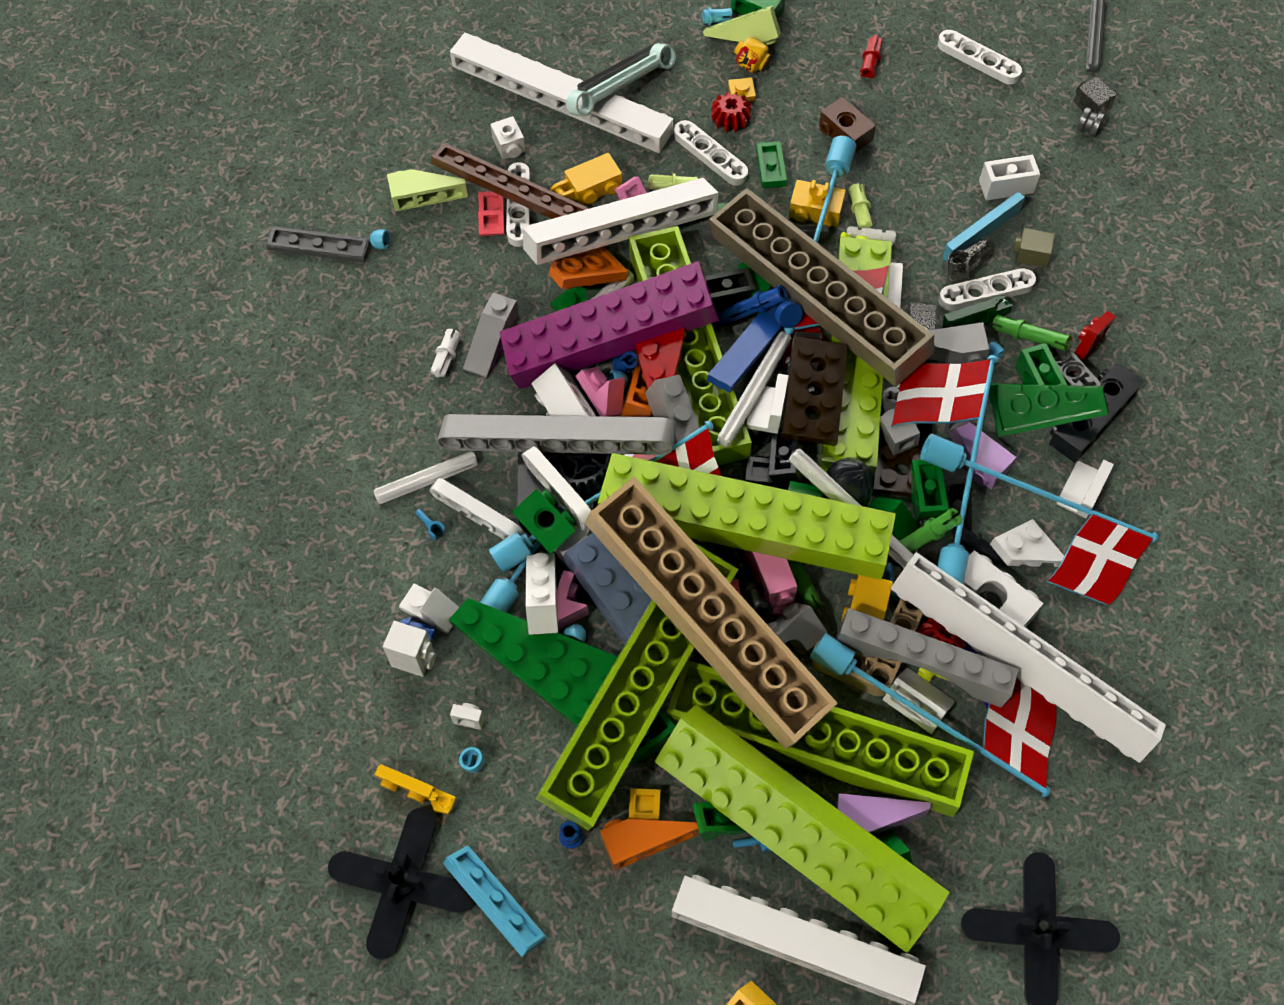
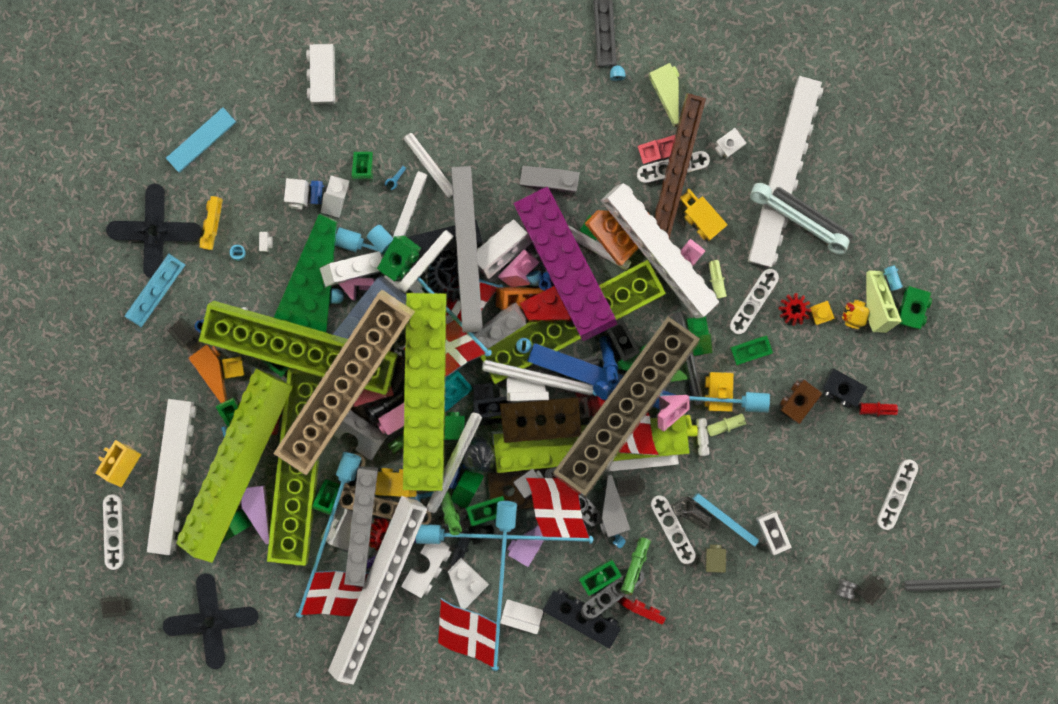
camera: 75 degrees right, 25 degrees up
(251, 586) = (321, 74): none -> white brick
(286, 780) = (201, 140): none -> medium azure tile
(402, 560) = (362, 166): none -> green slope
(445, 353) = (529, 150): white axle -> none
(574, 868) = (183, 333): none -> clear smoke brick
(704, 396) = (519, 345): none -> medium azure hinge
(833, 243) = (671, 408): none -> bright pink slope
(839, 80) = (854, 388): none -> black brick
(873, 704) = (326, 497): none -> green slope
(978, 313) = (646, 525): dark green hinge -> none
(1036, 406) = (568, 575): green wing -> none

